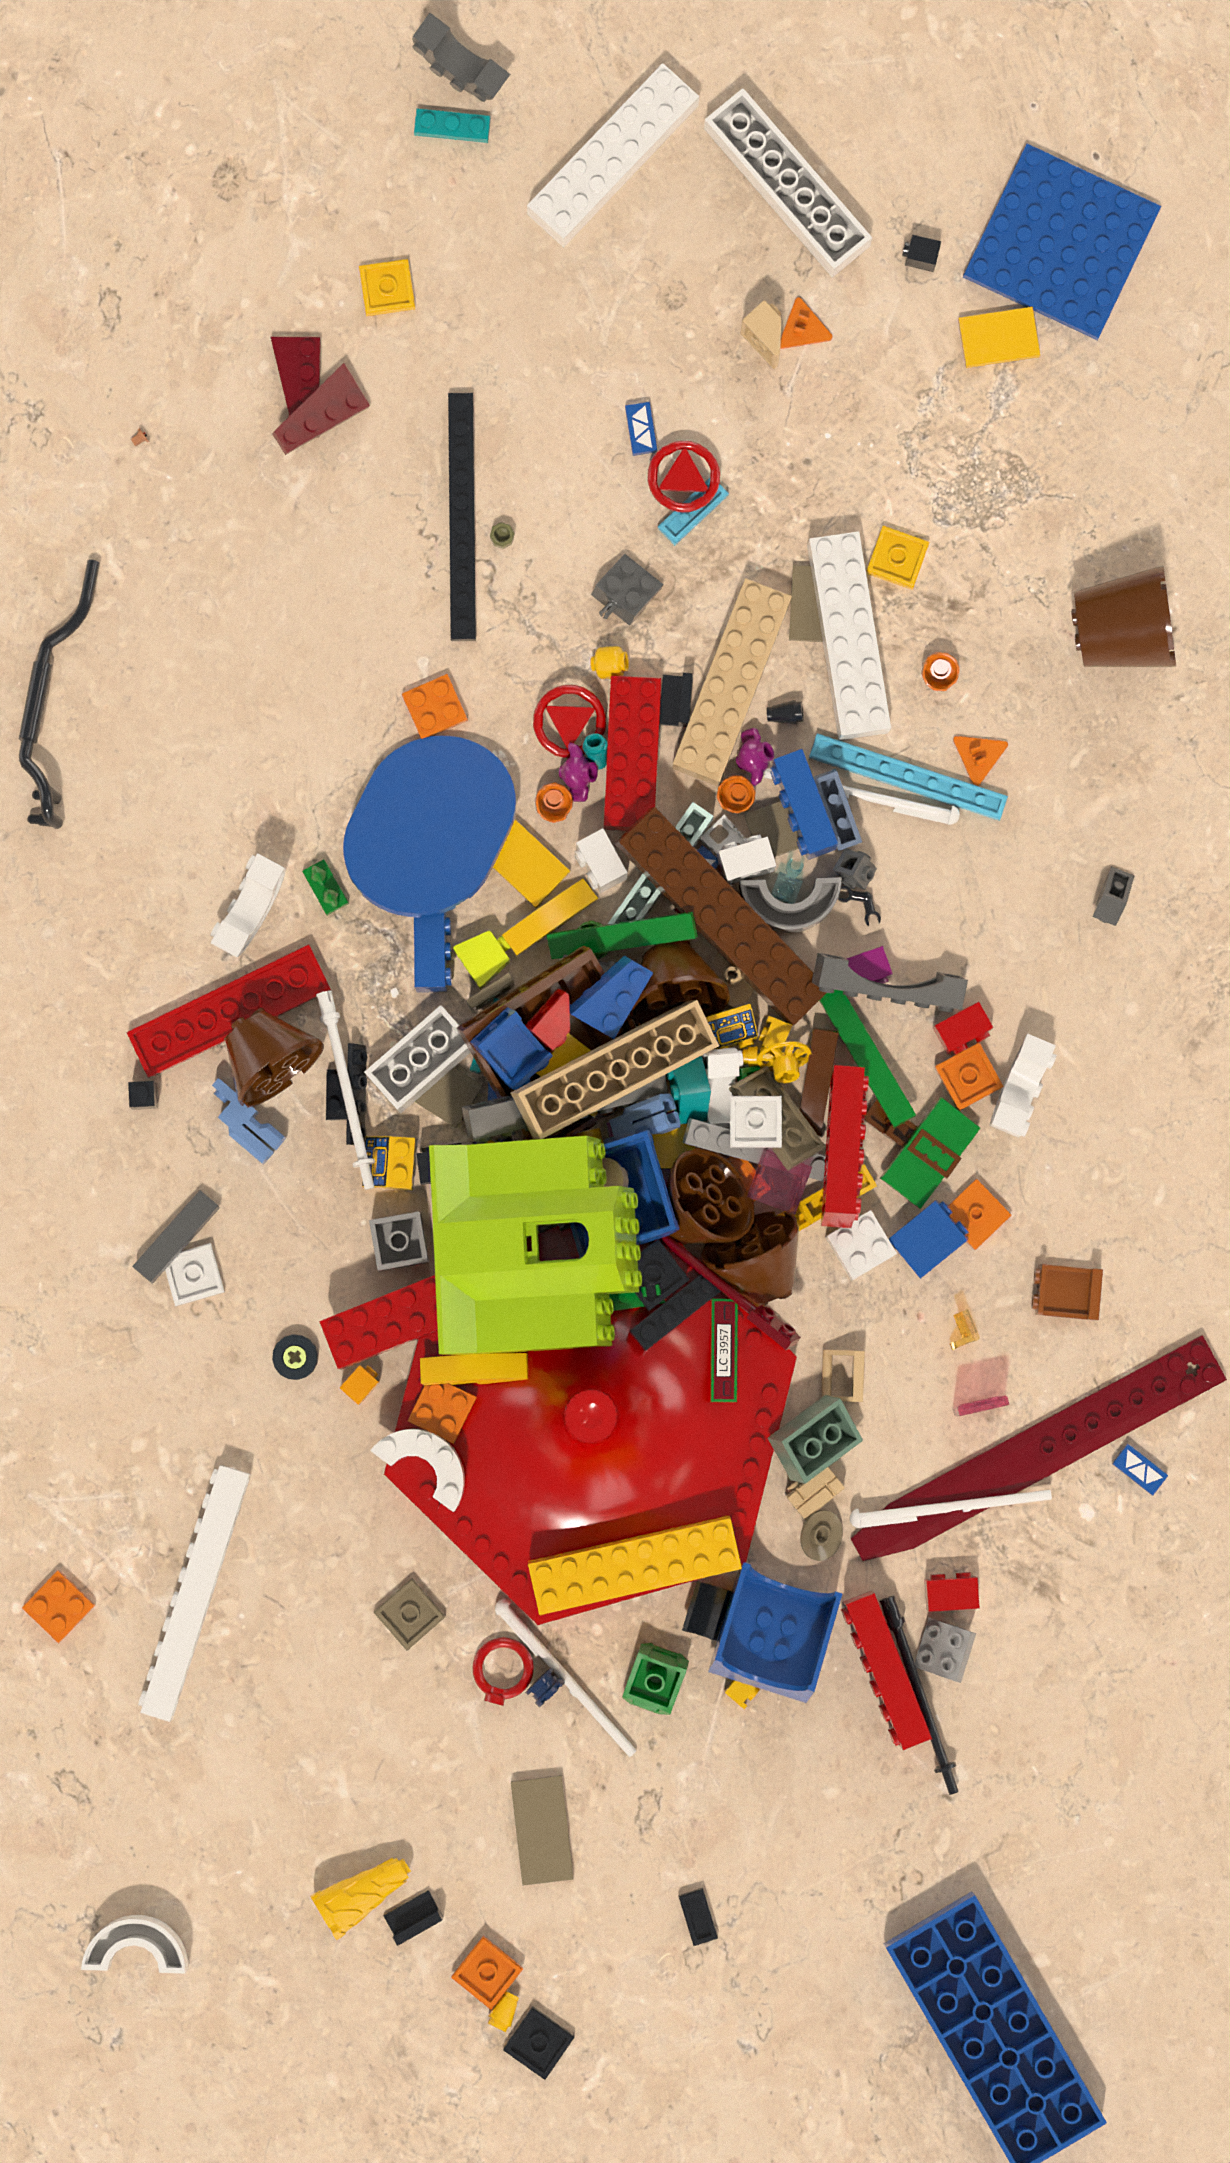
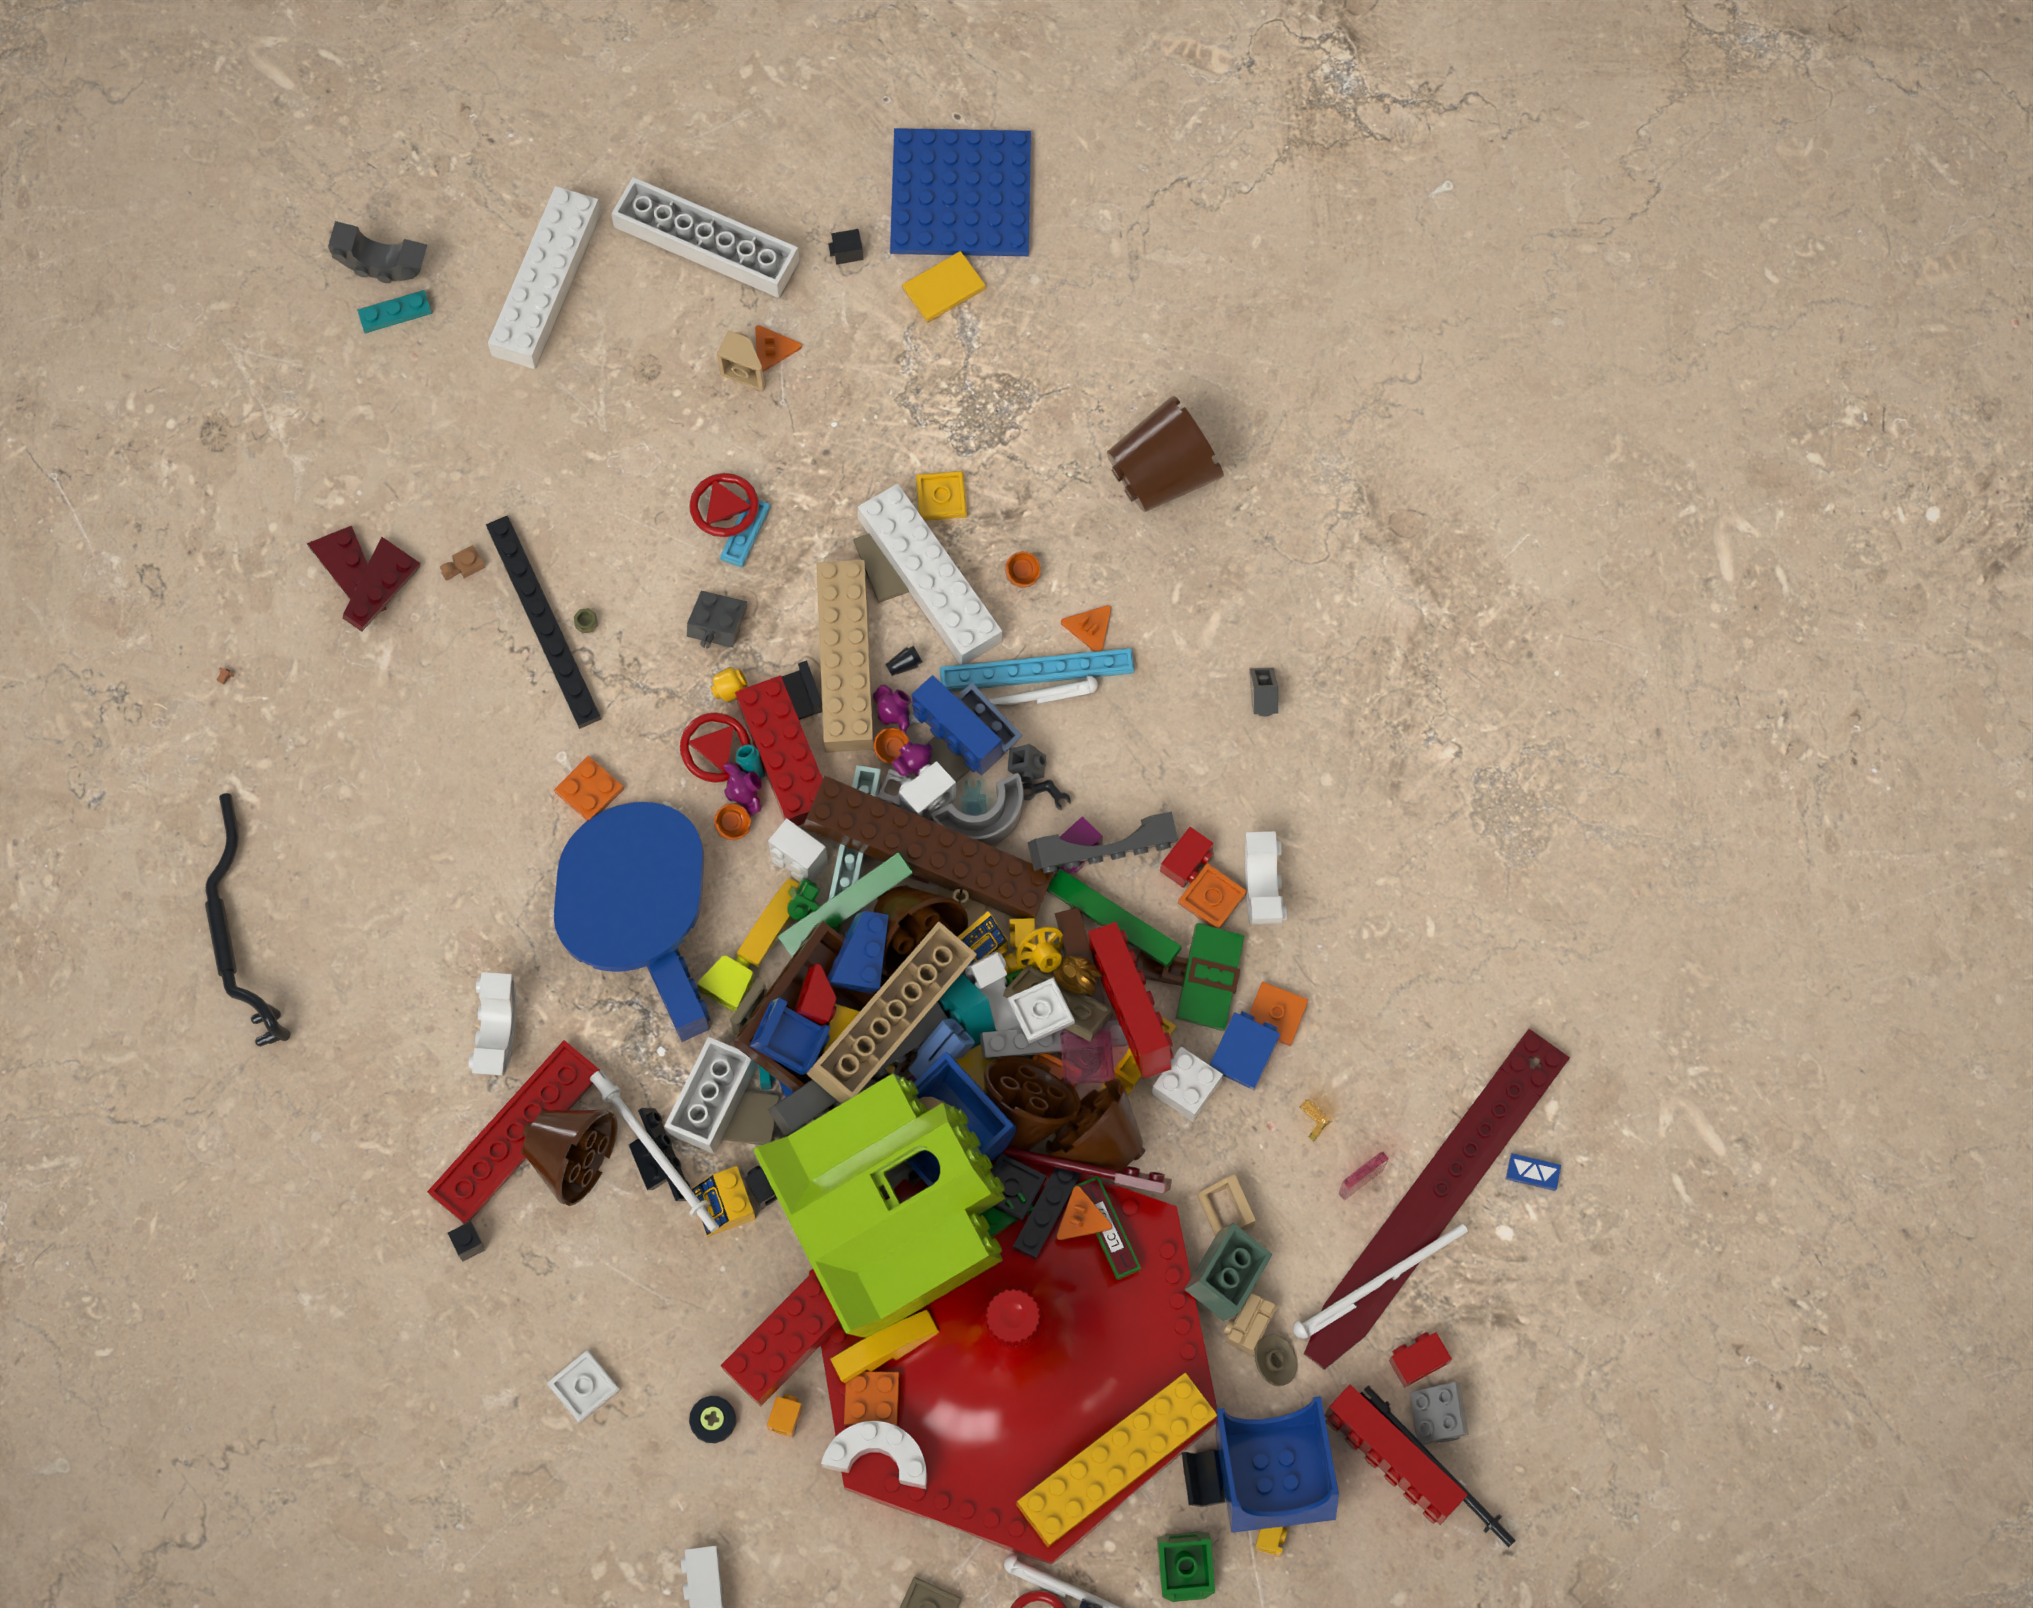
camera: 20 degrees left, 15 degrees down
(176, 1237) = (552, 1357): dark grey tile -> none
(238, 1116) = (575, 1230): medium blue plate -> none
(325, 887) = (557, 985): green tile -> none
(387, 287) = (393, 462): yellow tile -> none
(399, 1241) = (763, 1267): light grey brick -> none
(414, 423) = (465, 562): none -> medium nougat plate
(529, 865) = (734, 887): yellow tile -> none
(586, 910) = (802, 899): none -> green hips
(641, 428) = (669, 484): blue tile -> none
(705, 1331) = (1082, 1217): none -> orange piece
(749, 819) = (912, 758): none -> magenta piece
(806, 1098) = (1077, 975): none -> pearl gold hat
(1067, 1292) = (1391, 1044): dark orange panel -> none

